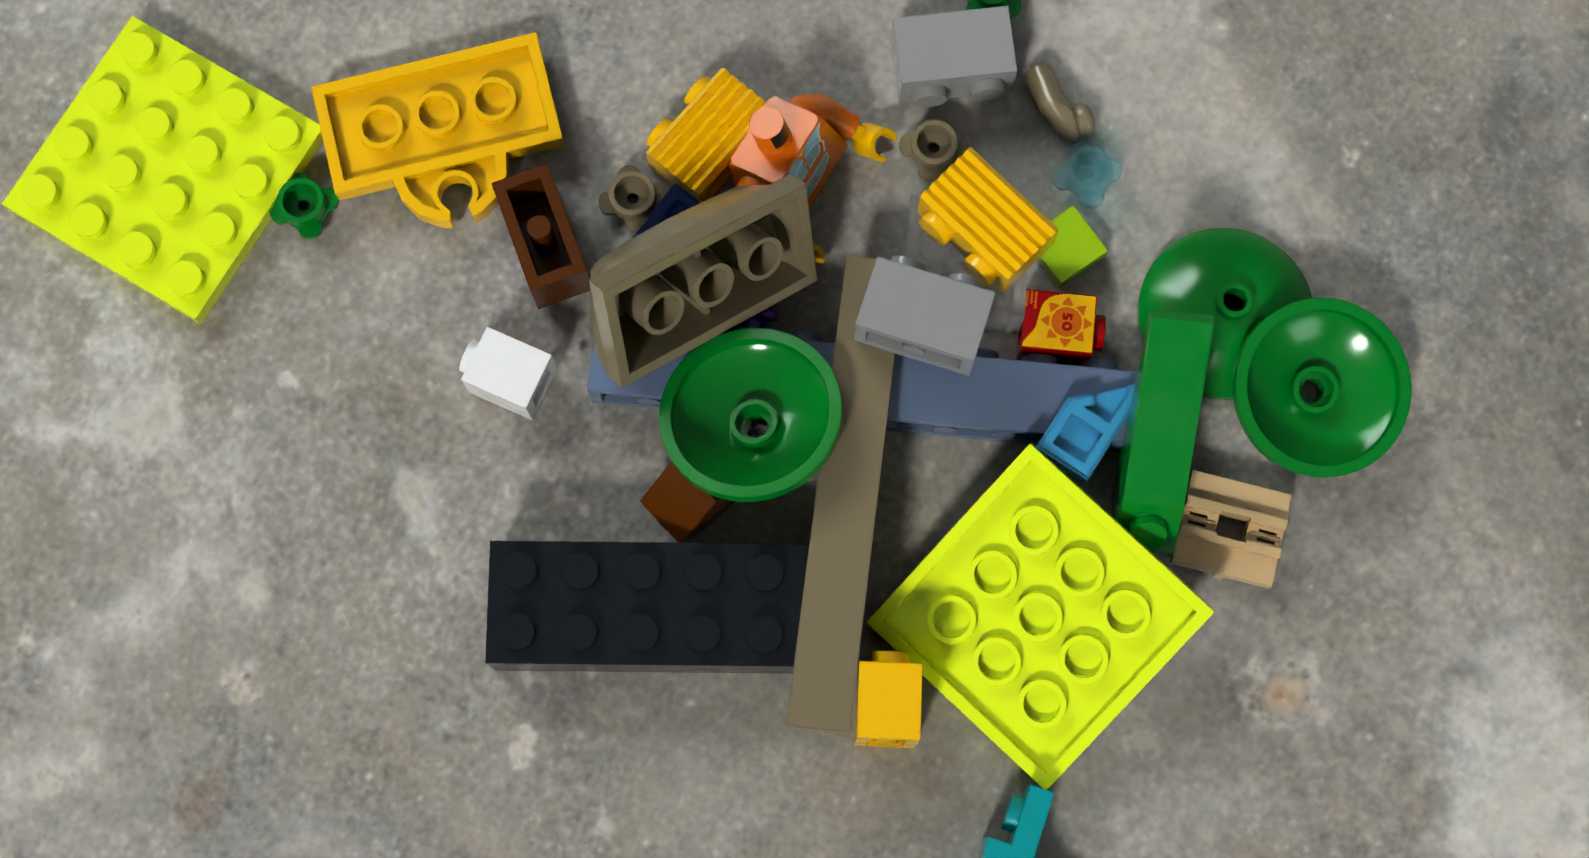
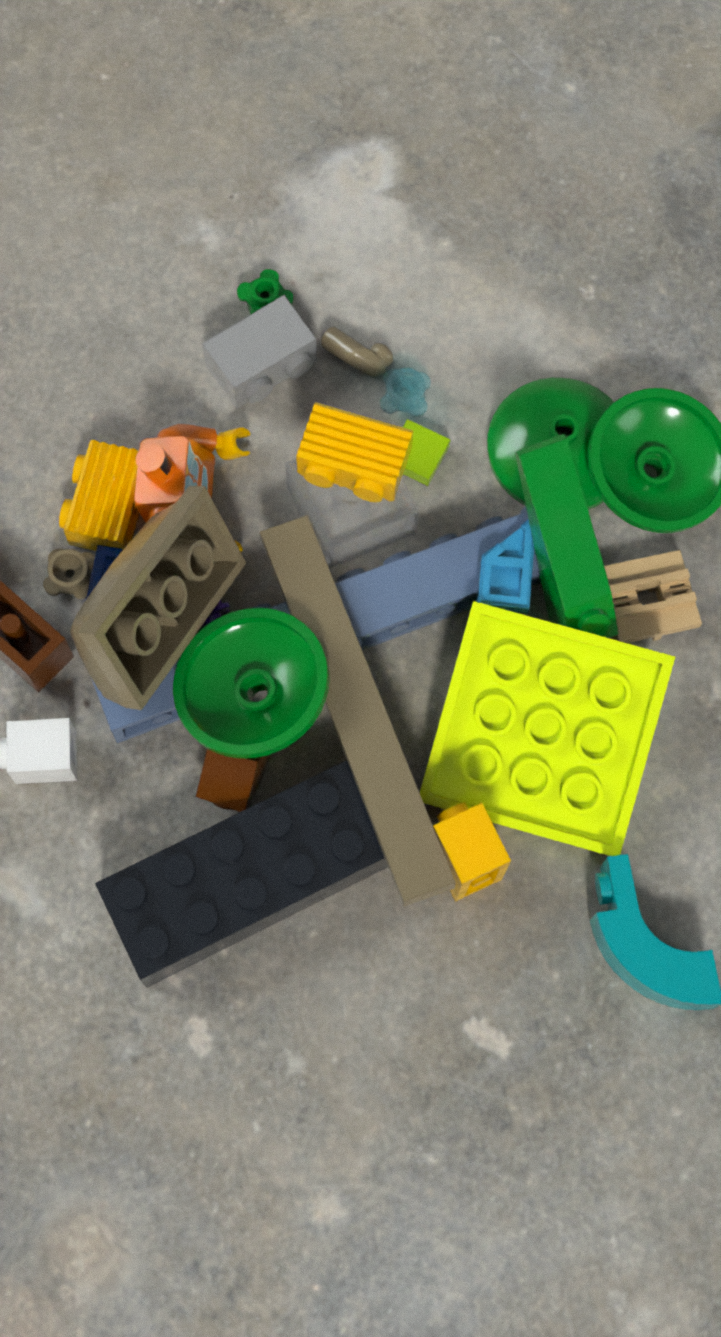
camera: 30 degrees left, 5 degrees down
(924, 314) = (345, 543): light grey brick -> none
(932, 131) = (274, 415): dark tan plate -> none
(1061, 326) = (447, 509): brick -> none

